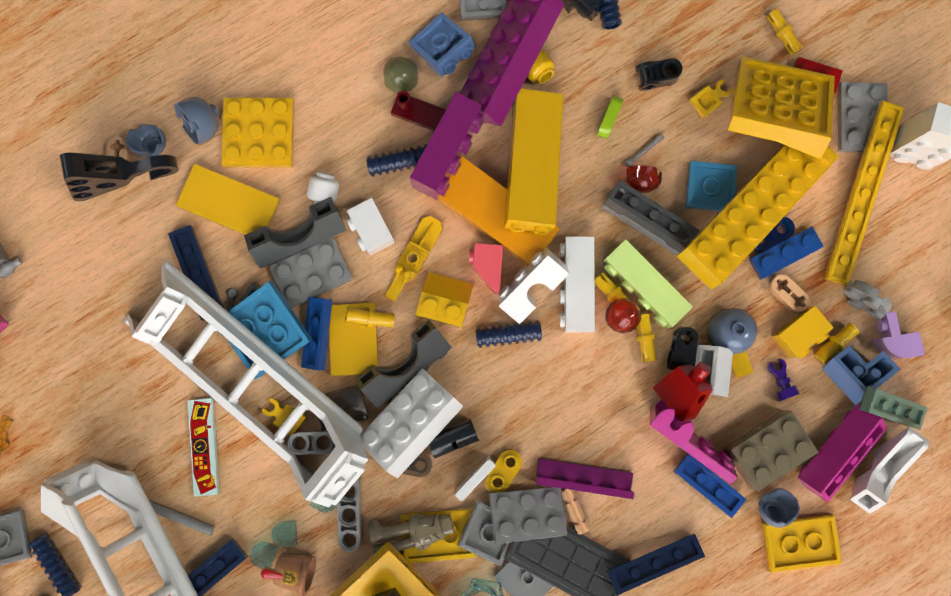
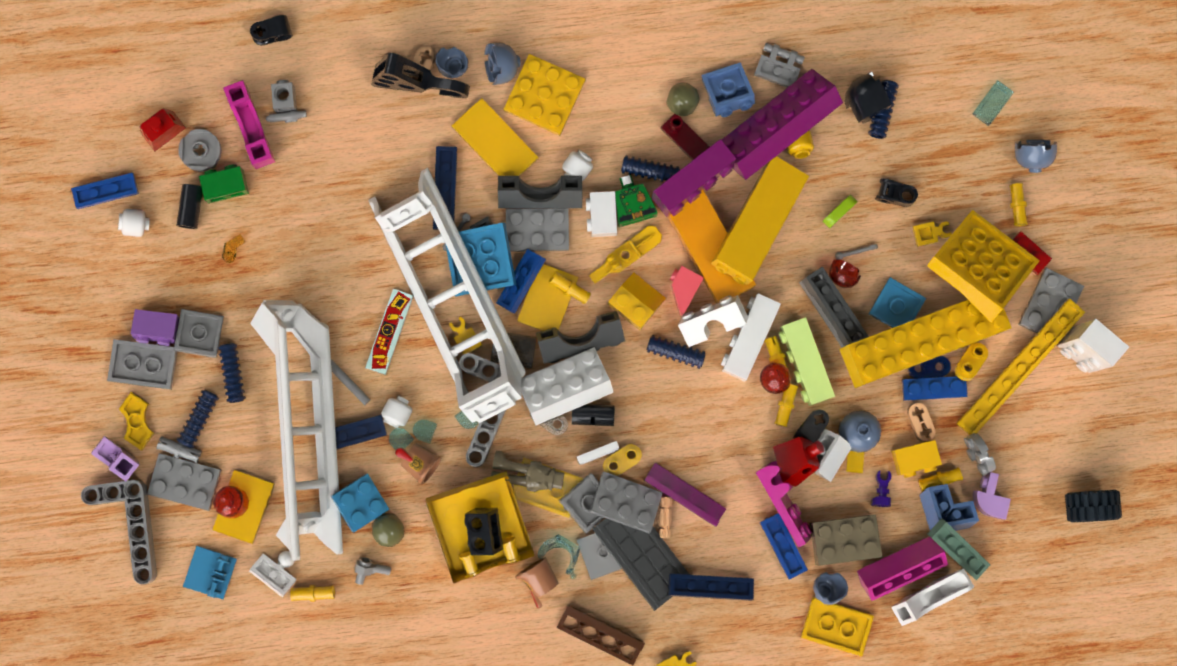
camera: 20 degrees right, 0 degrees up
(246, 529) = (396, 412): none -> white head
(397, 201) = (633, 203): none -> green torso
(811, 207) = (971, 360): none -> yellow plate

